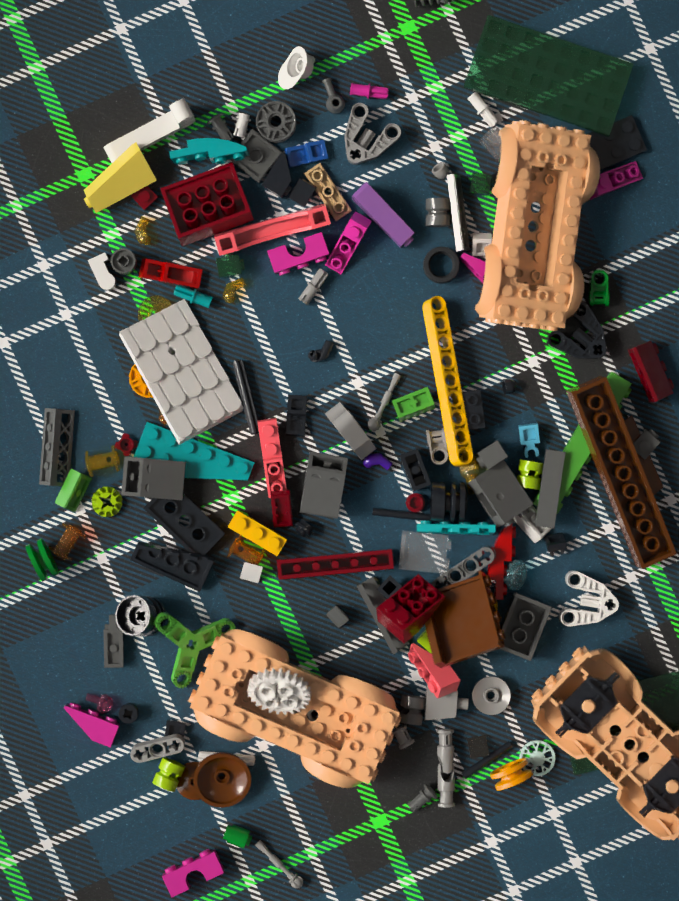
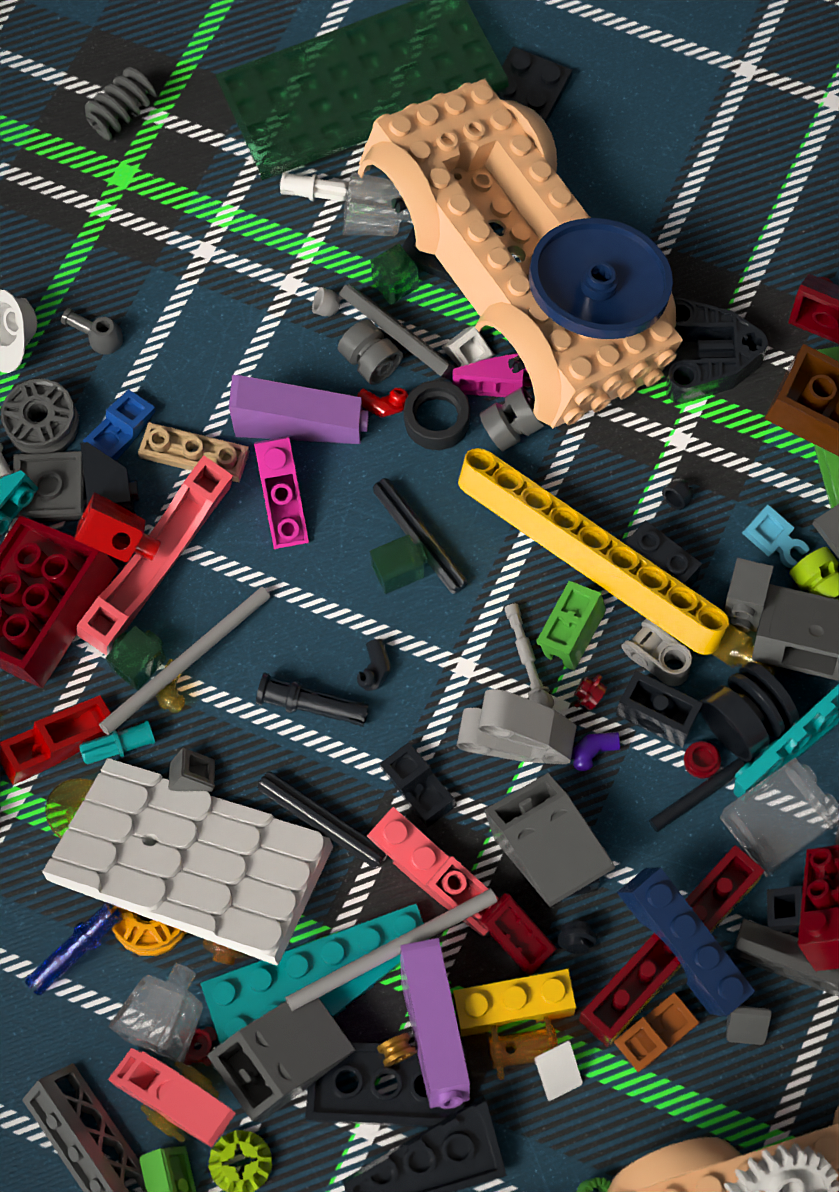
camera: 35 degrees left, 20 degrees down
(99, 459) = (172, 1096): none -> coral slope
(116, 368) = (86, 936): none -> clear blue pin
(121, 422) = (161, 1014): none -> clear torso
(197, 513) = (396, 1049): none -> pearl gold bush
(212, 334) = (191, 772): none -> dark grey slope
(218, 517) = (434, 1023): none -> medium lavender slope
(227, 475) = (390, 950): none -> light grey piece
(247, 285) = (185, 660): none -> light grey piece
(262, 206) = (104, 520): none -> red torso
(278, 337) = (295, 697): none -> black pin
(283, 261) = (211, 586): dark pink arch -> none
(302, 192) = (156, 475): black slope -> none
(302, 589) = (656, 1032): none -> dark orange slope
(313, 286) = (283, 587): light grey axle -> none
(339, 568) = (707, 966): none -> dark blue arch
(367, 318) = (398, 563): none -> clear green brick
(369, 91) = (137, 284): dark pink axle -> none
(381, 144) = (188, 358): light grey connector -> none
(388, 308) = (412, 525): none -> black axle
(395, 438) = (589, 692): none -> dark red plate
(423, 240) = (386, 405): none -> red arm
(465, 295) = (502, 427): none -> dark grey wheel
(564, 272) = (600, 278): none -> dark blue dish
(598, 290) = (686, 275): green piece -> none
(617, 178) = (570, 128): dark pink slope -> none

